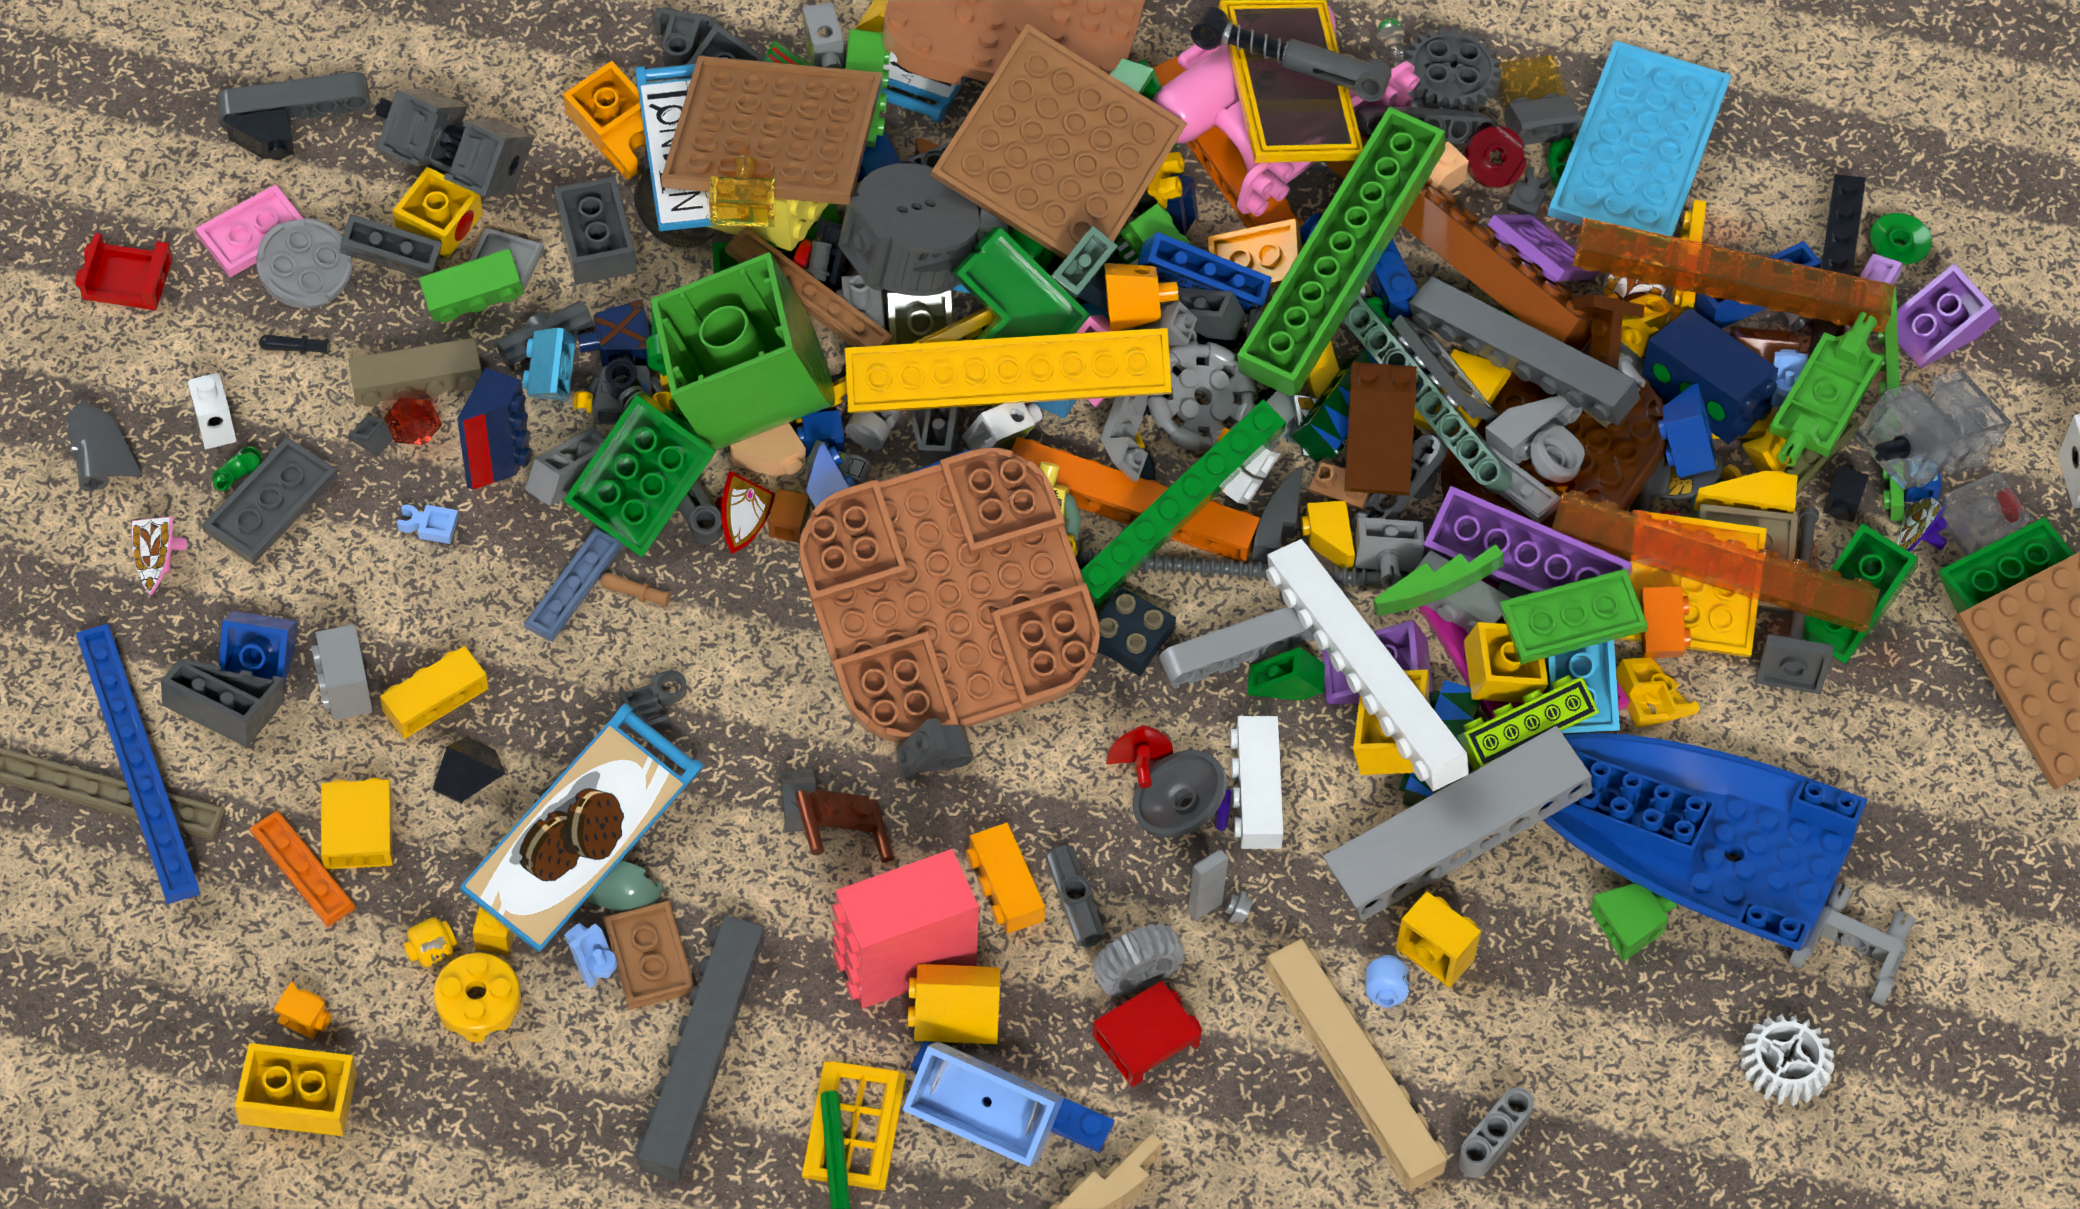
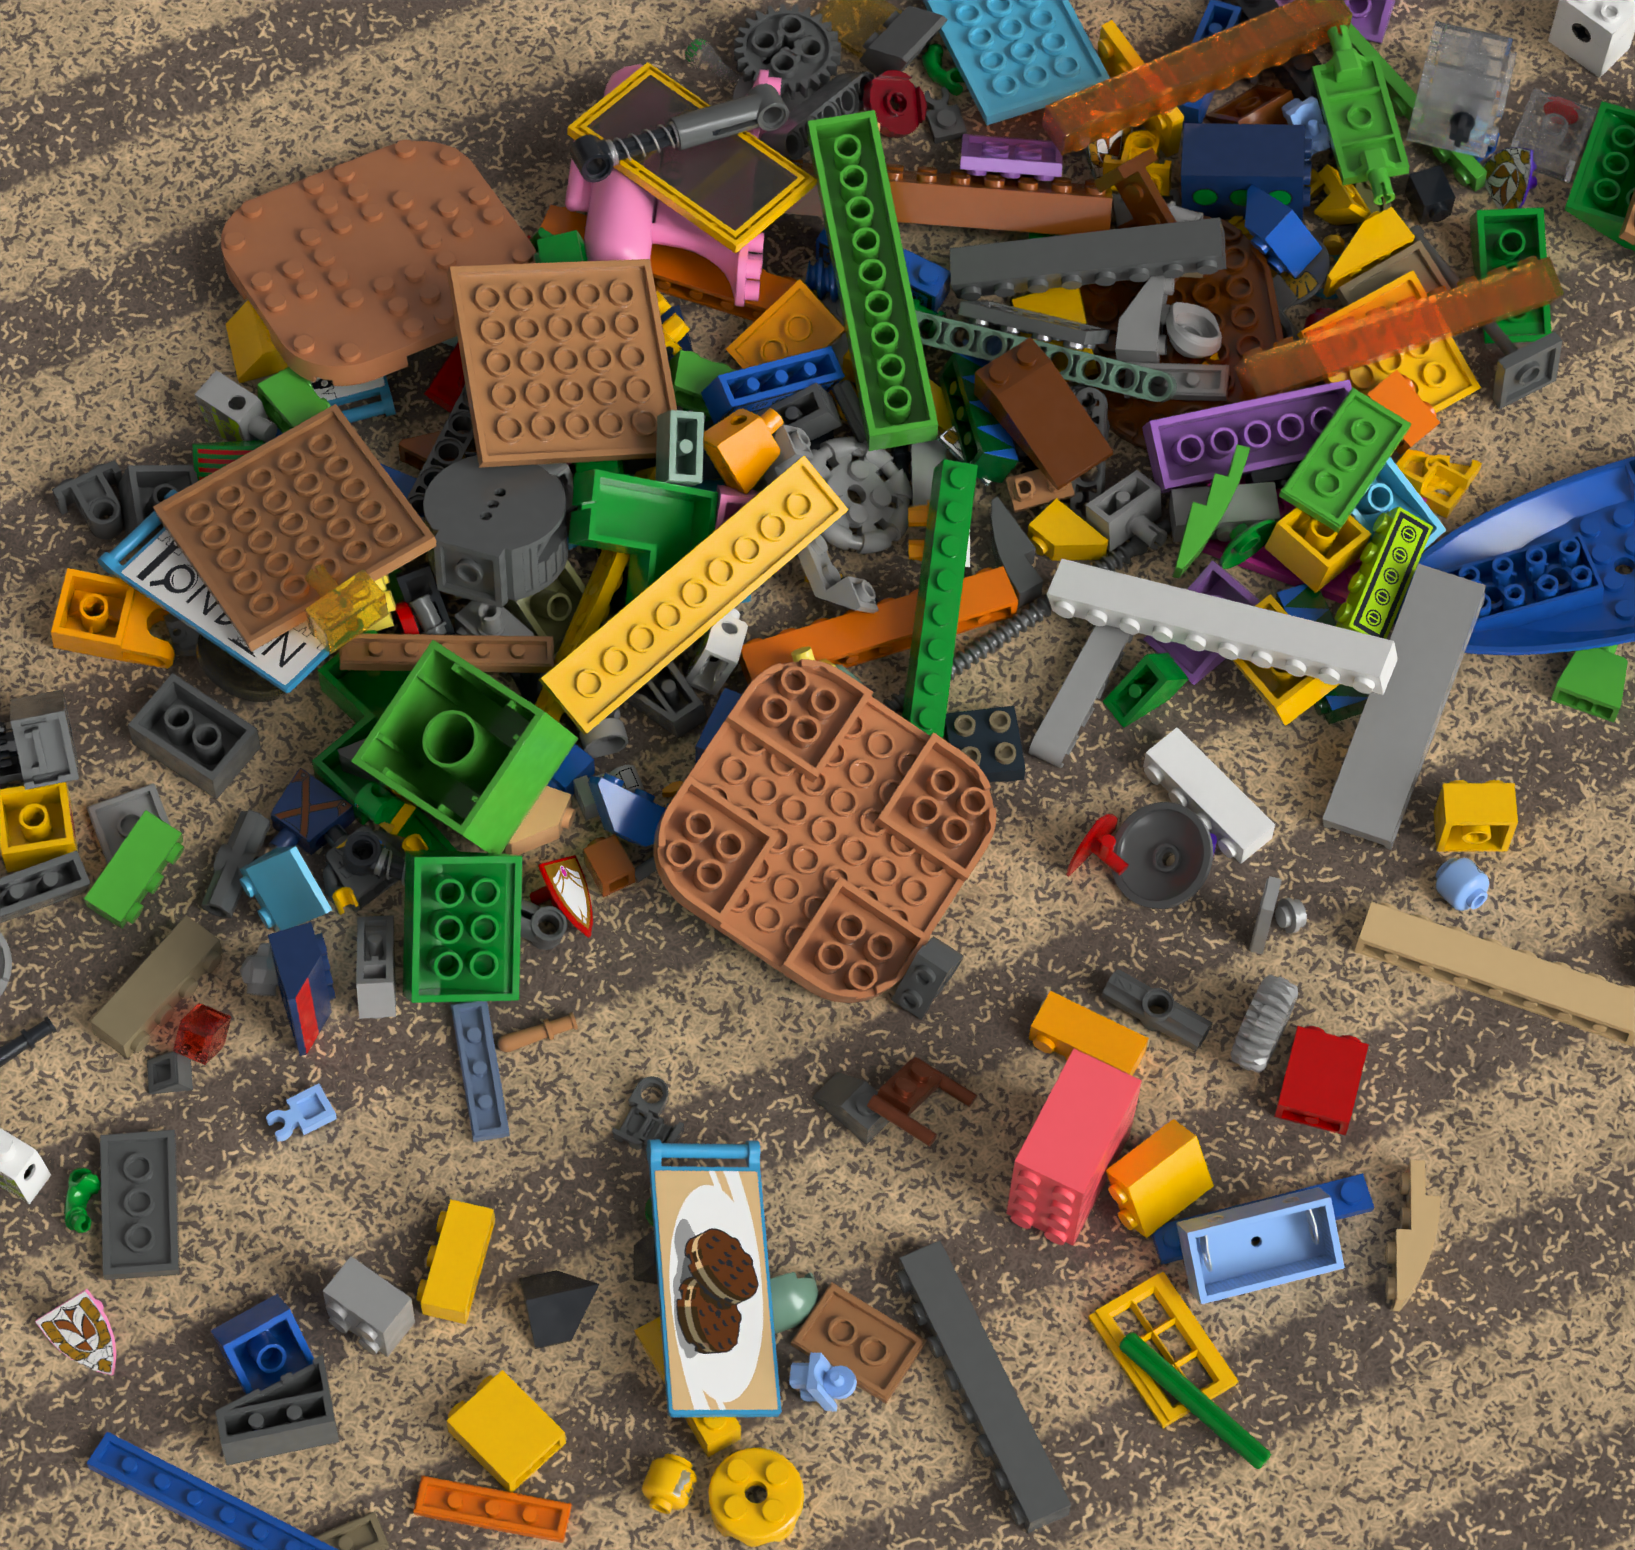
camera: 40 degrees left, 5 degrees up
(1447, 626) = (1246, 542): none -> green dish

